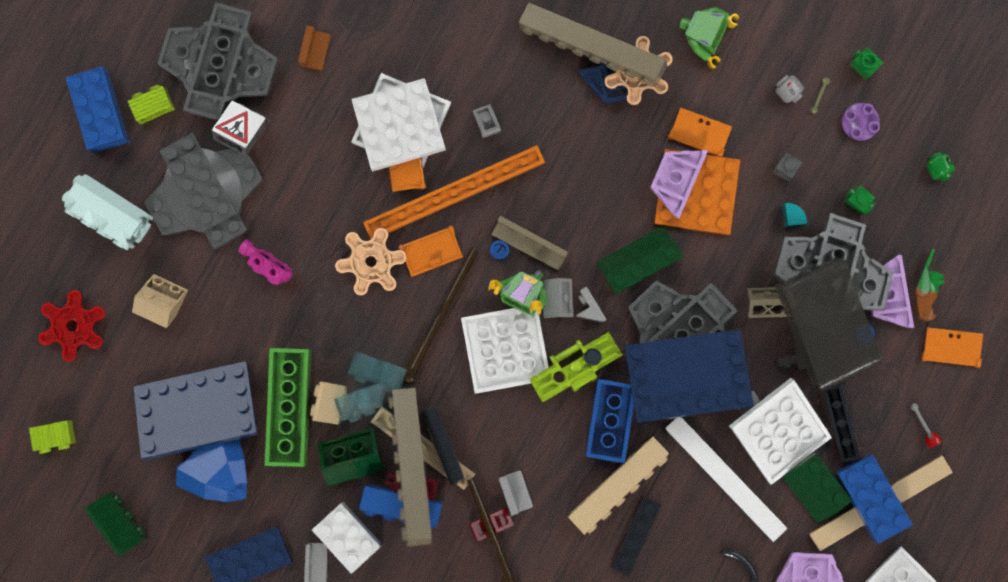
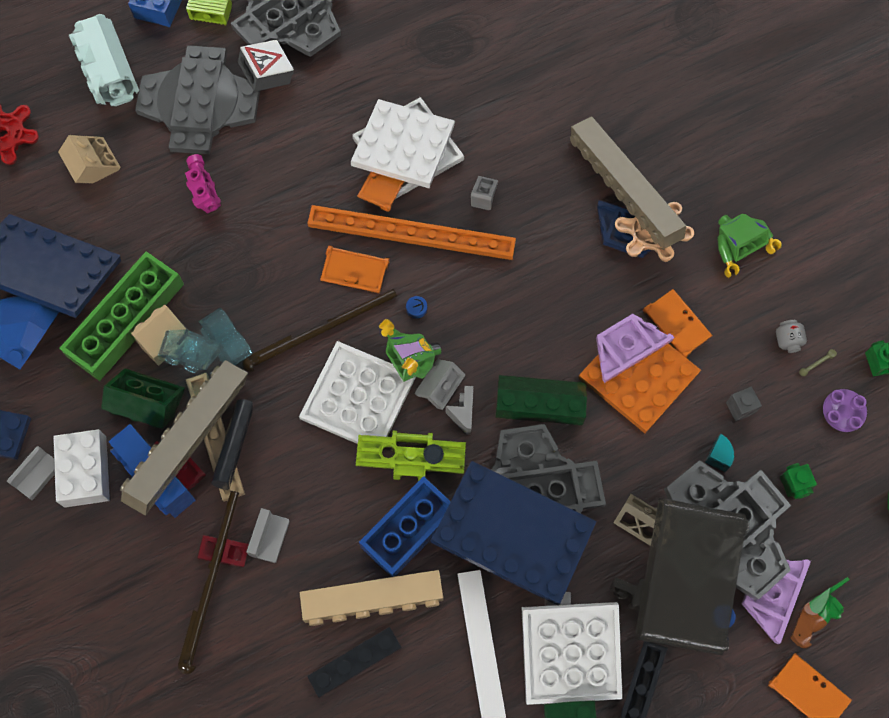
camera: 30 degrees right, 15 degrees down
(314, 49) = (377, 46): dark orange panel -> none
(357, 261) = (293, 227): light nougat plate -> none
(529, 243) = (449, 318): dark tan fence -> none

